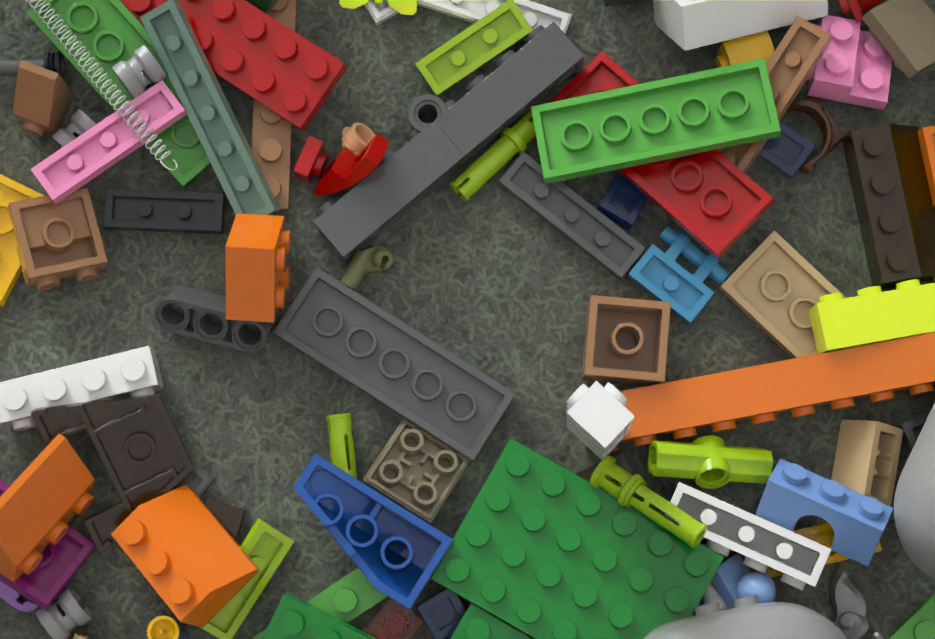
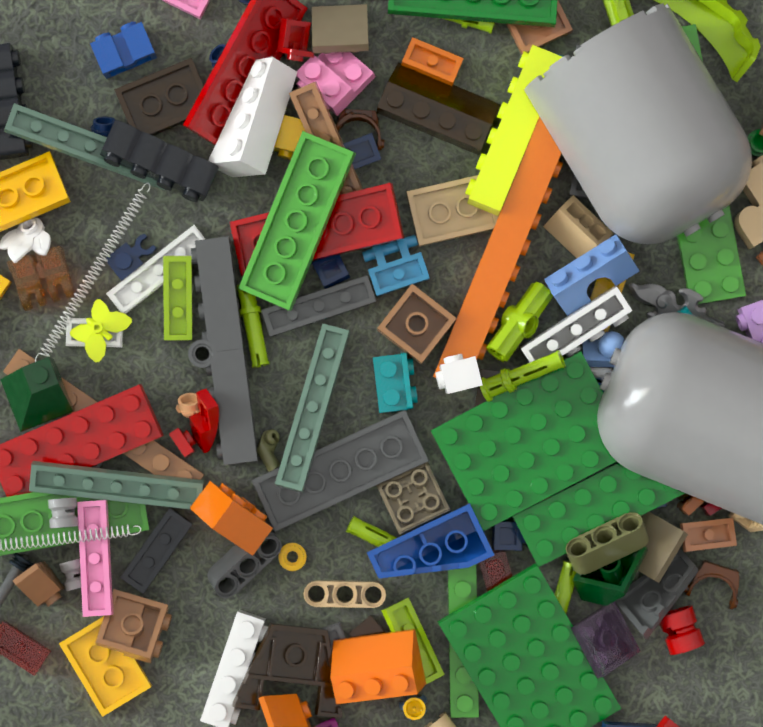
camera: 60 degrees left, 5 degrees up
(236, 448) = (357, 601): none -> tan beam
(247, 364) = (292, 566): none -> yellow plate
(446, 283) = (312, 408): none -> sand green plate
(538, 361) = (394, 383): none -> teal bracket

